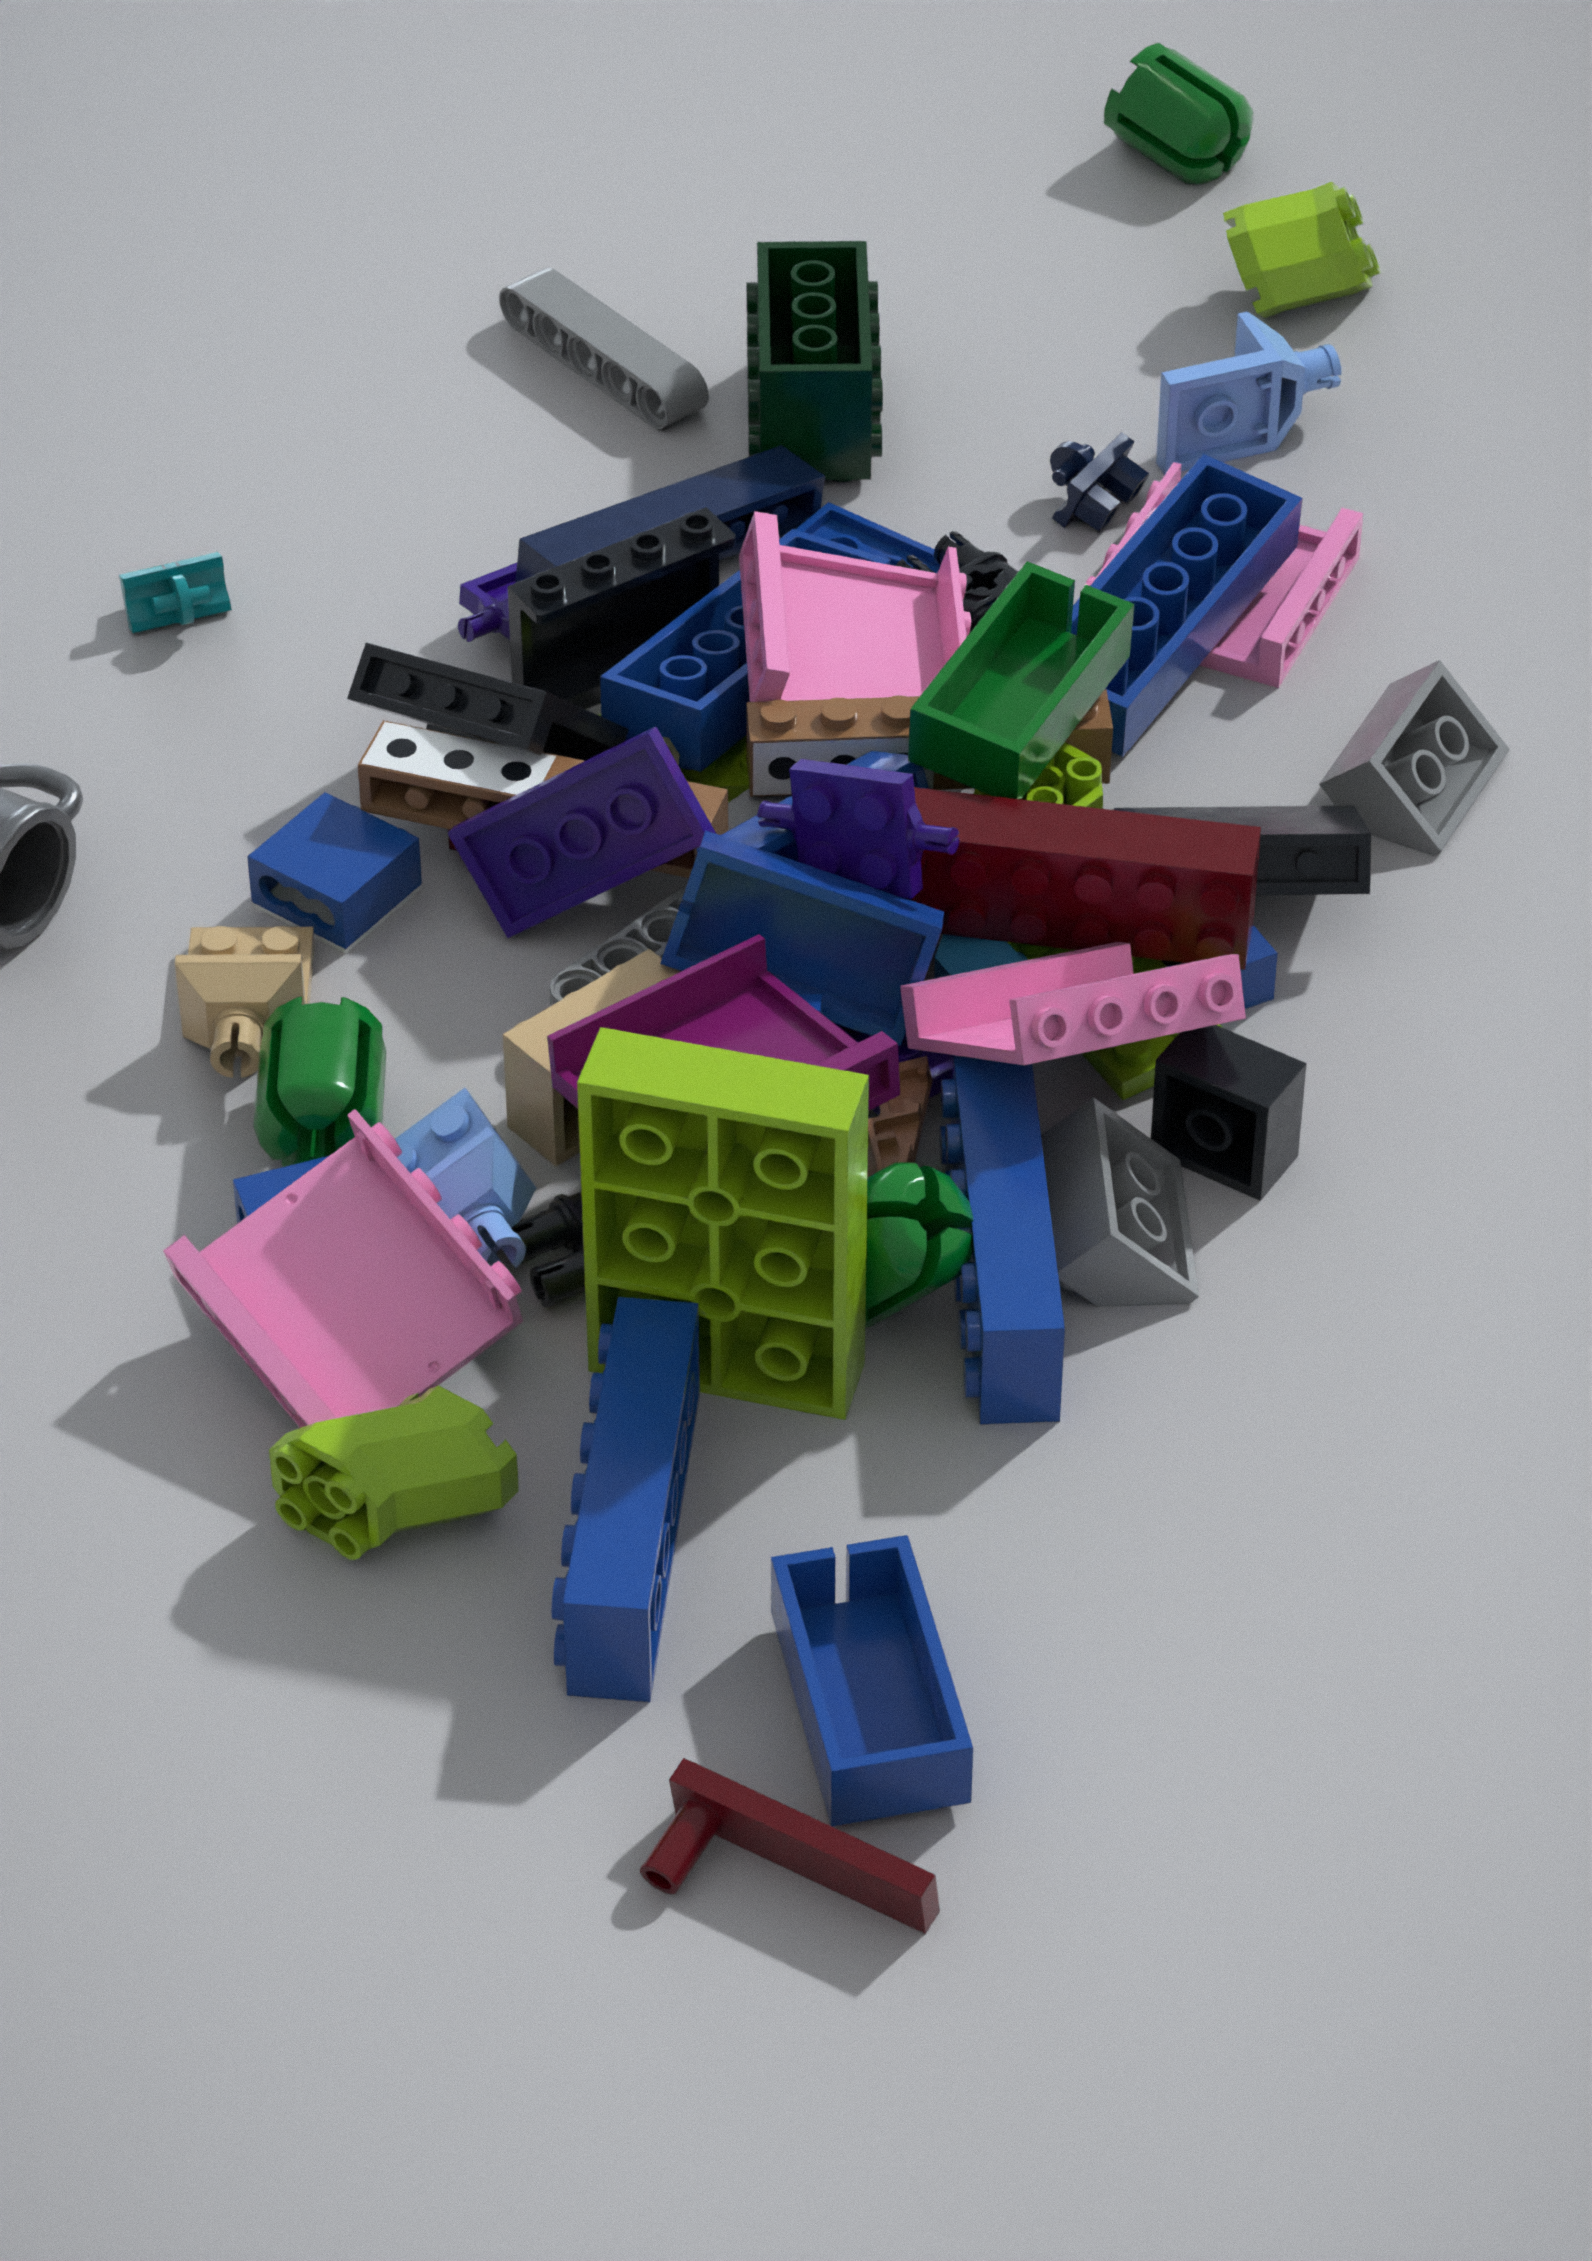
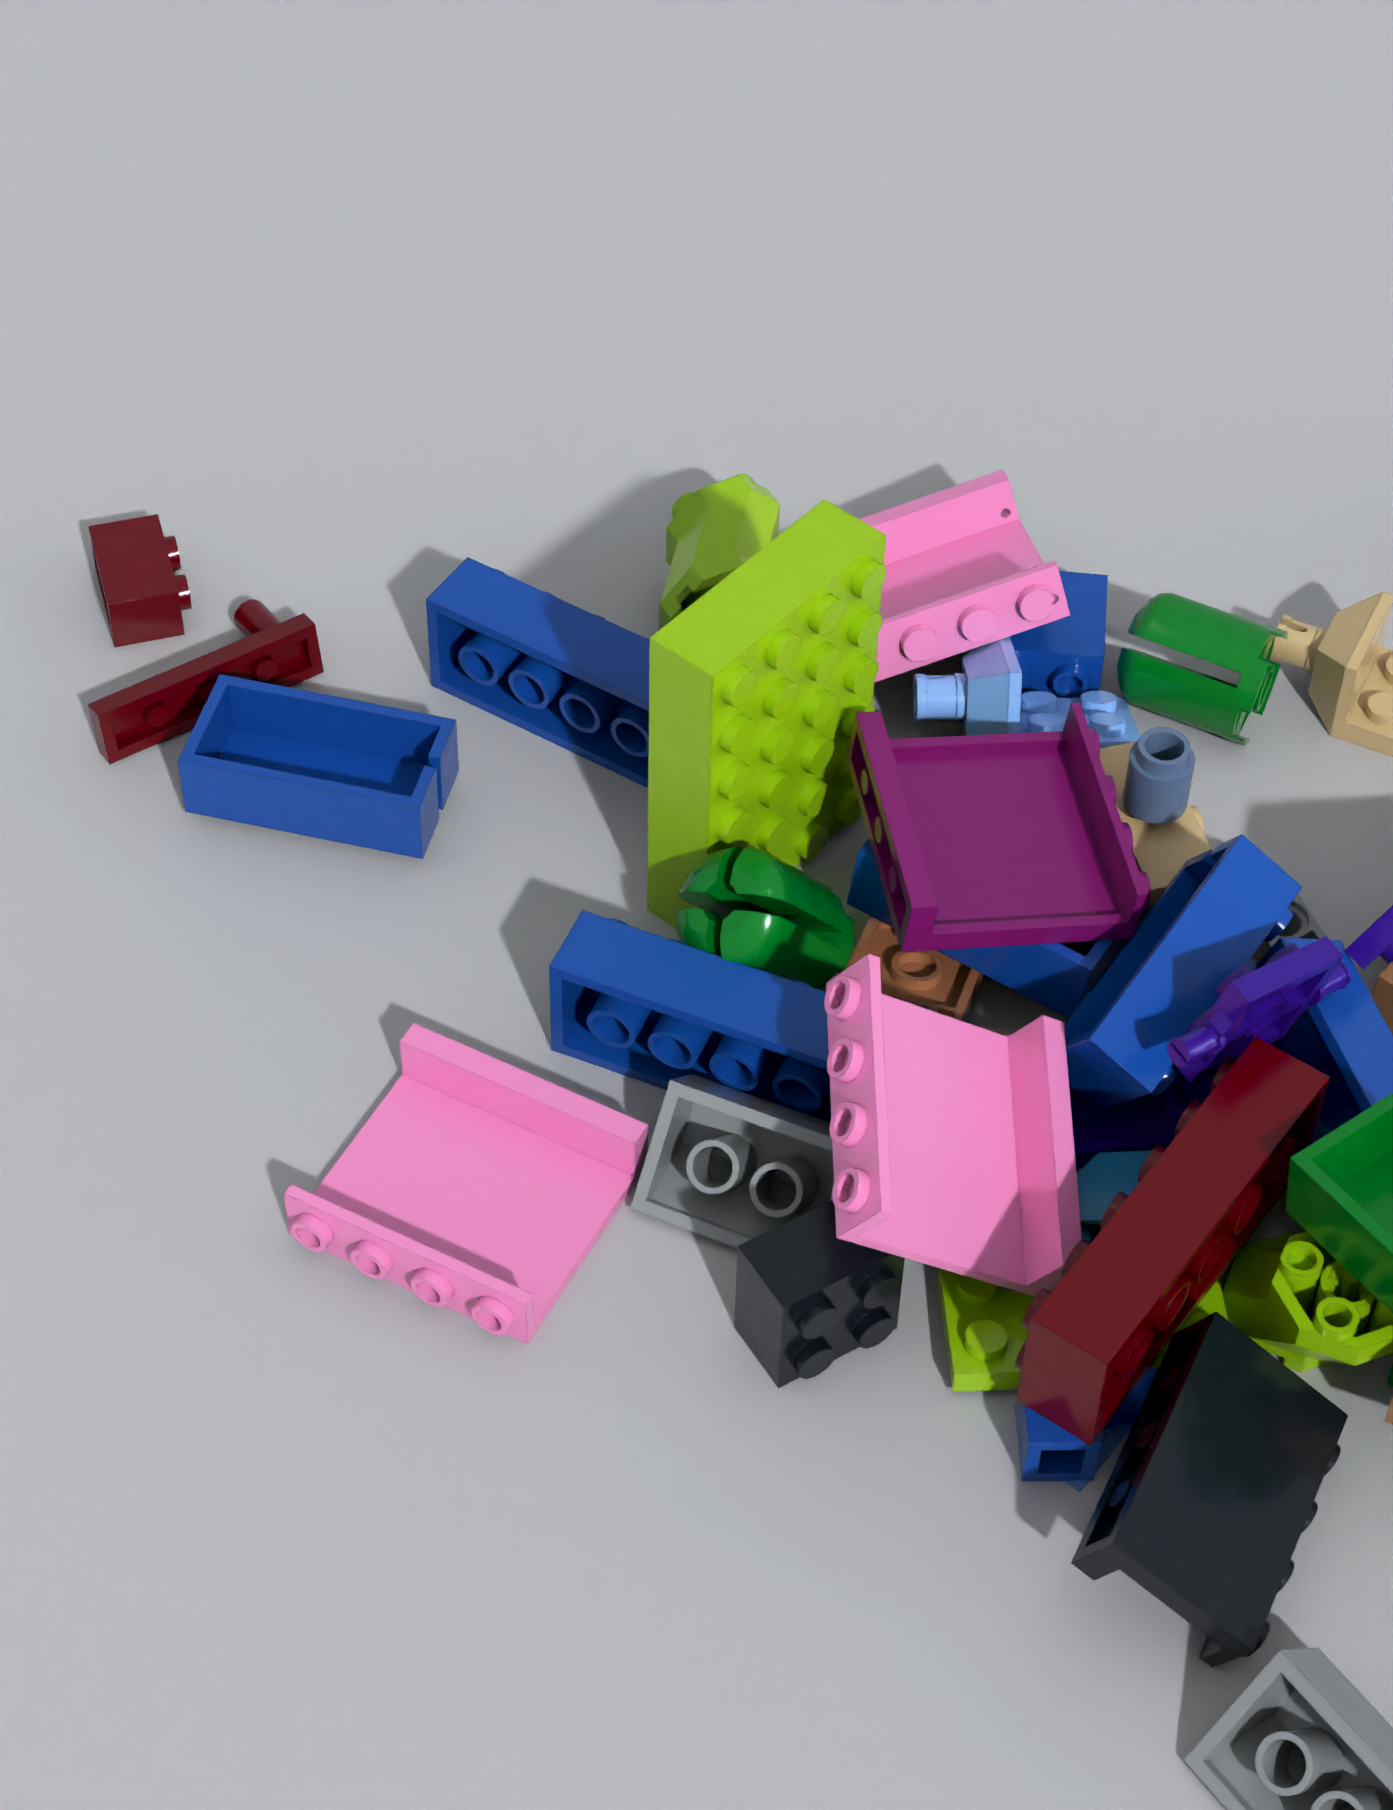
camera: 115 degrees right, 5 degrees up
(596, 970) = (1159, 776): none -> sand blue brick
(678, 1990) = (138, 580): none -> dark red piece
(1268, 1403) = (474, 1185): none -> bright pink panel

